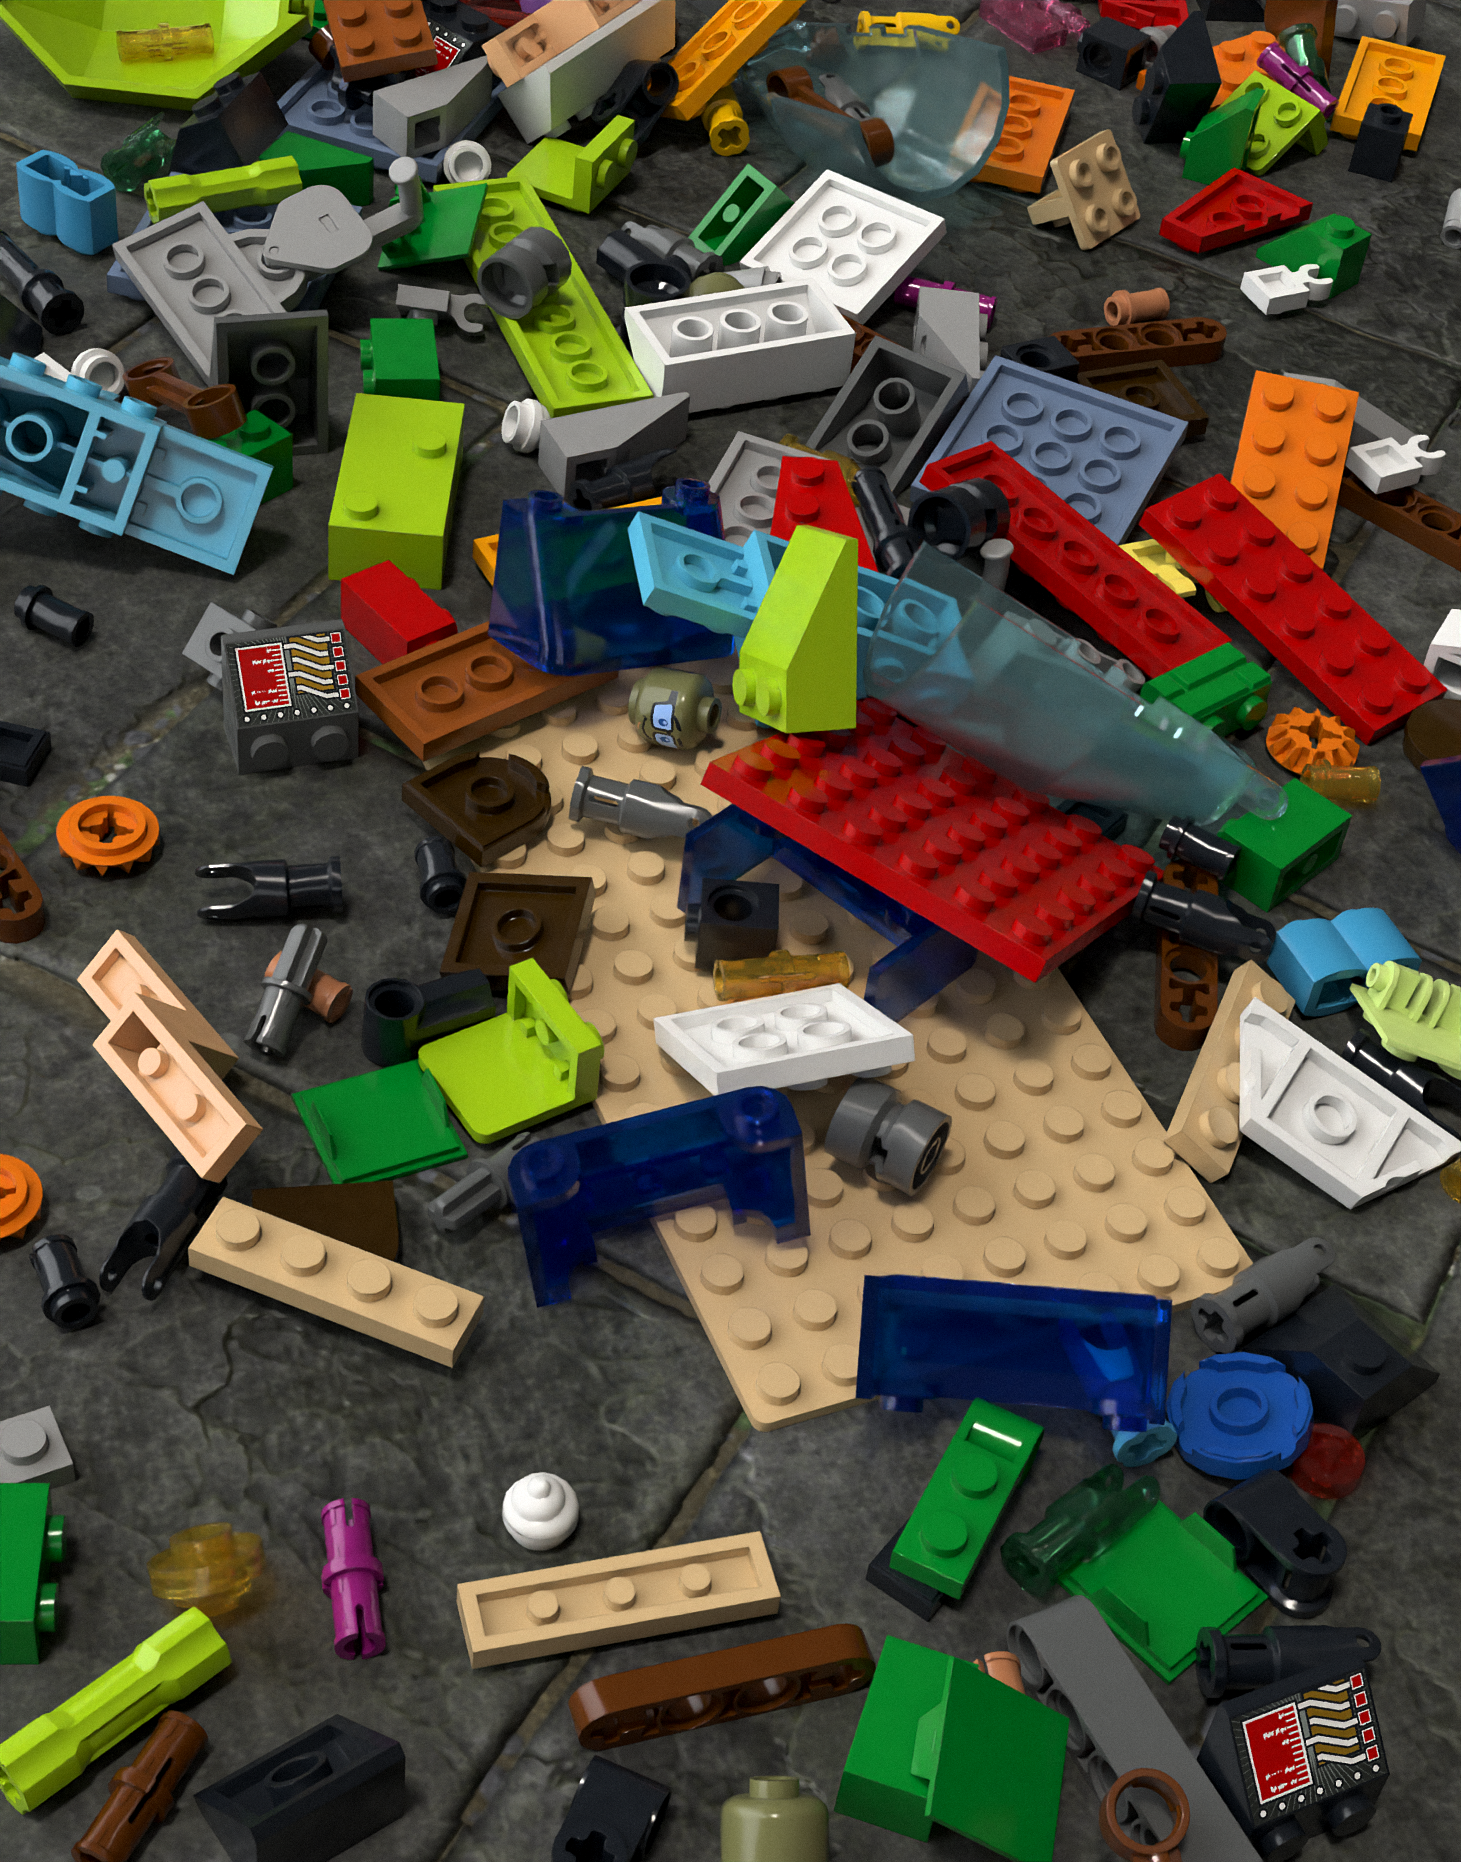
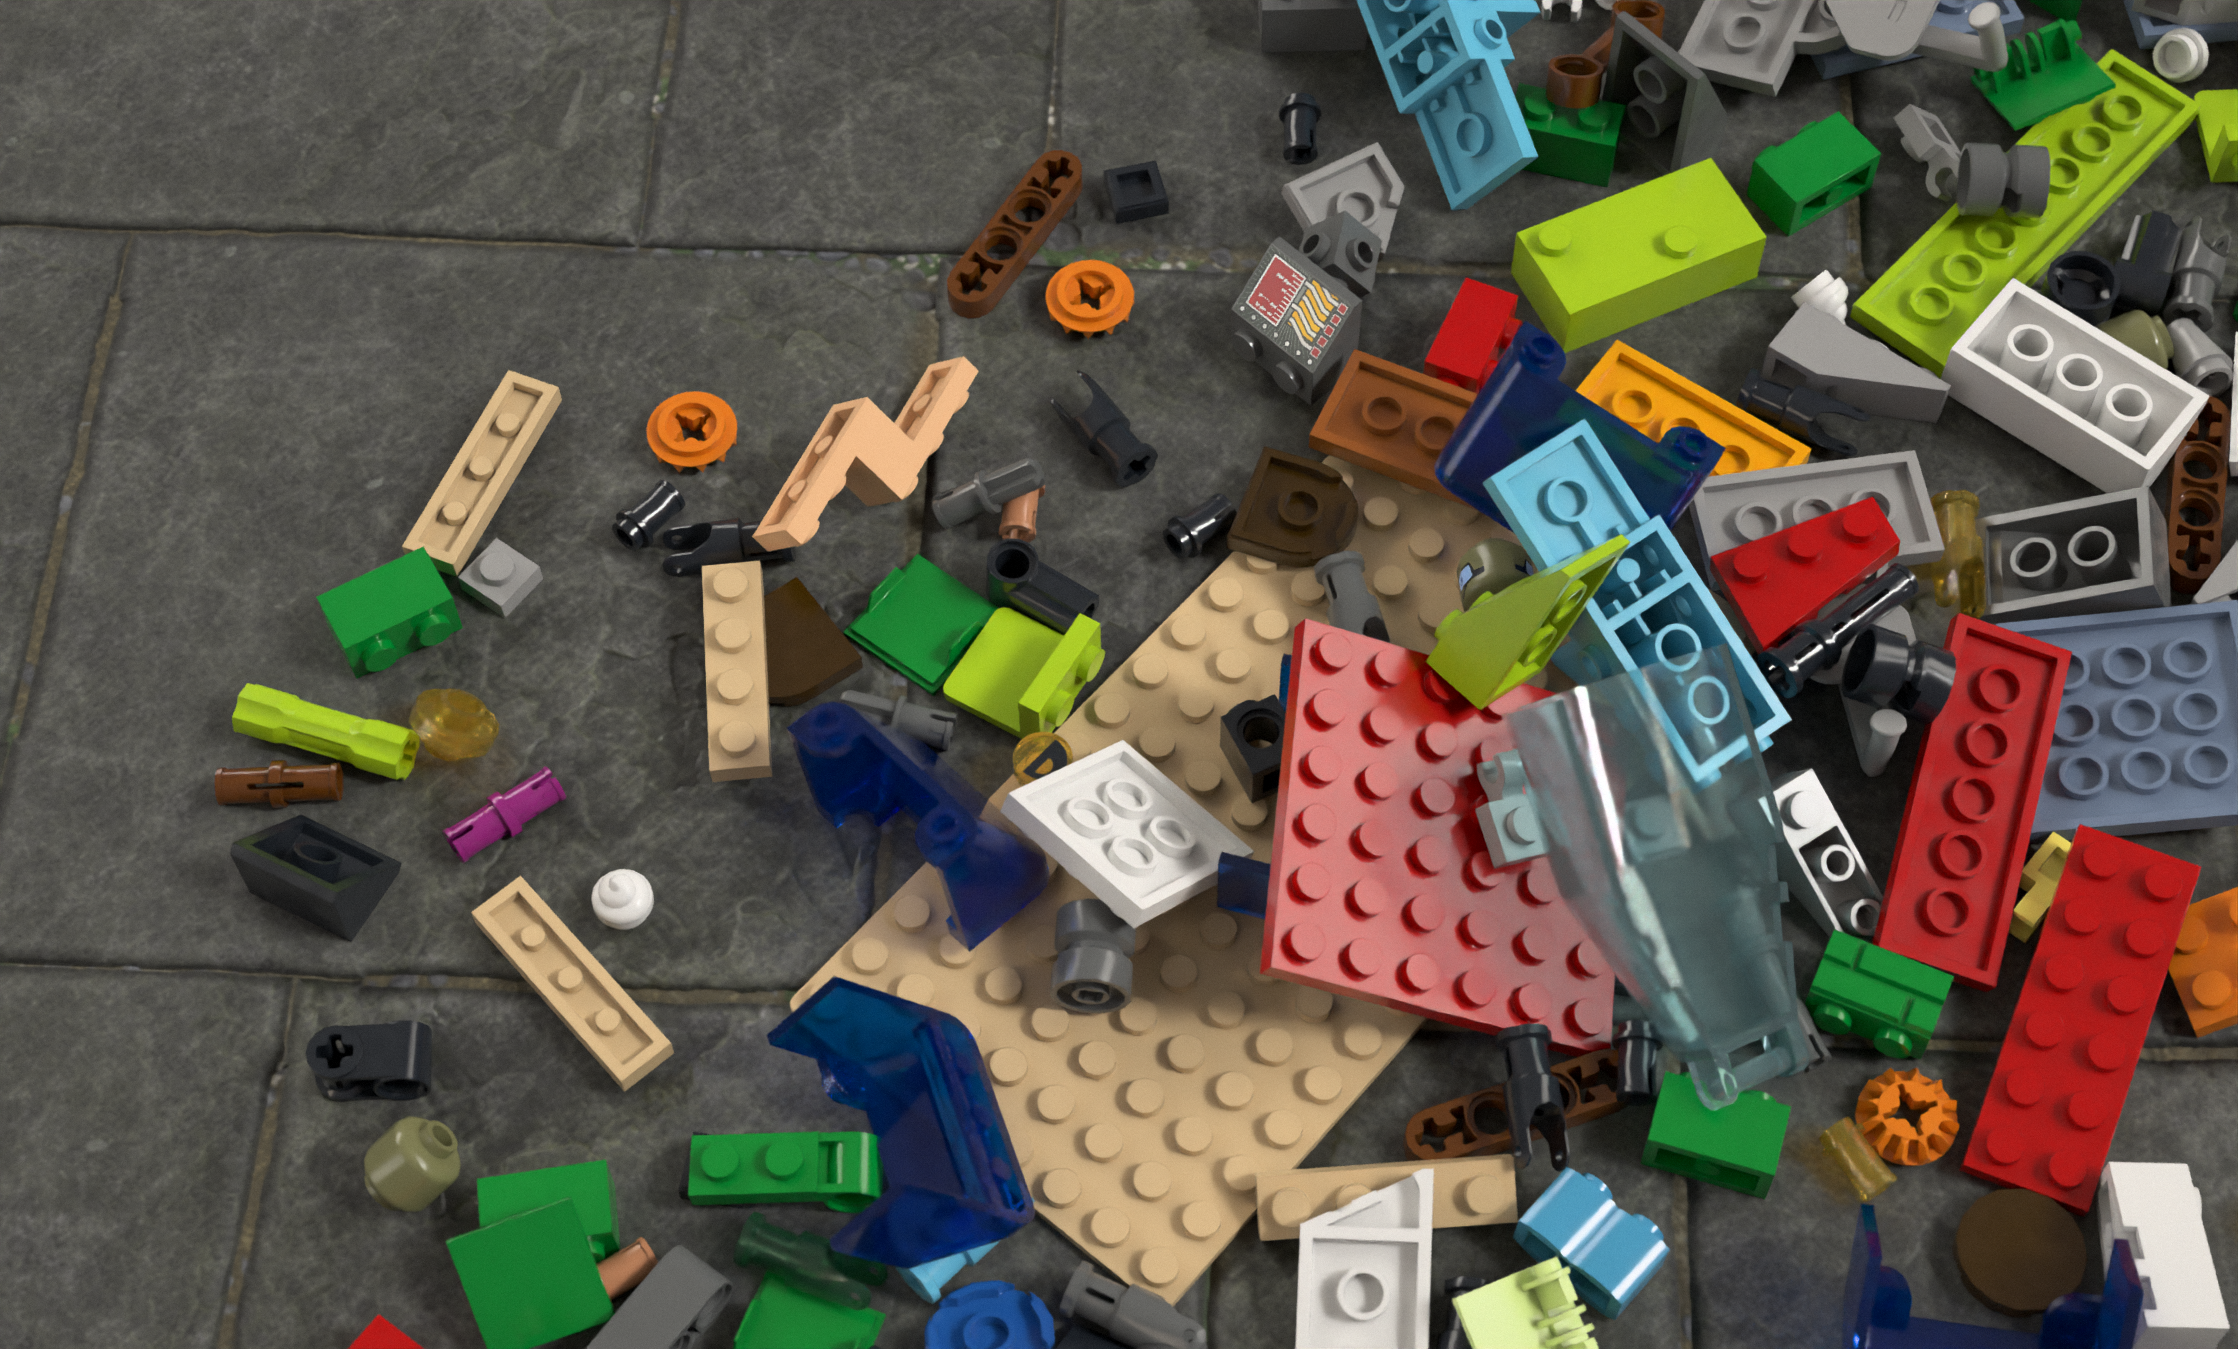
camera: 70 degrees right, 15 degrees up
(161, 617) = (1357, 183): none -> light grey plate
(517, 919) = (1165, 607): dark brown tile -> none
(630, 1088) = (1039, 756): none -> clear yellow tile
(721, 1686) = (531, 1079): reddish brown beam -> none
(741, 977) = (1231, 803): clear yellow pin -> none
(962, 776) = (1507, 817): none -> light grey plate

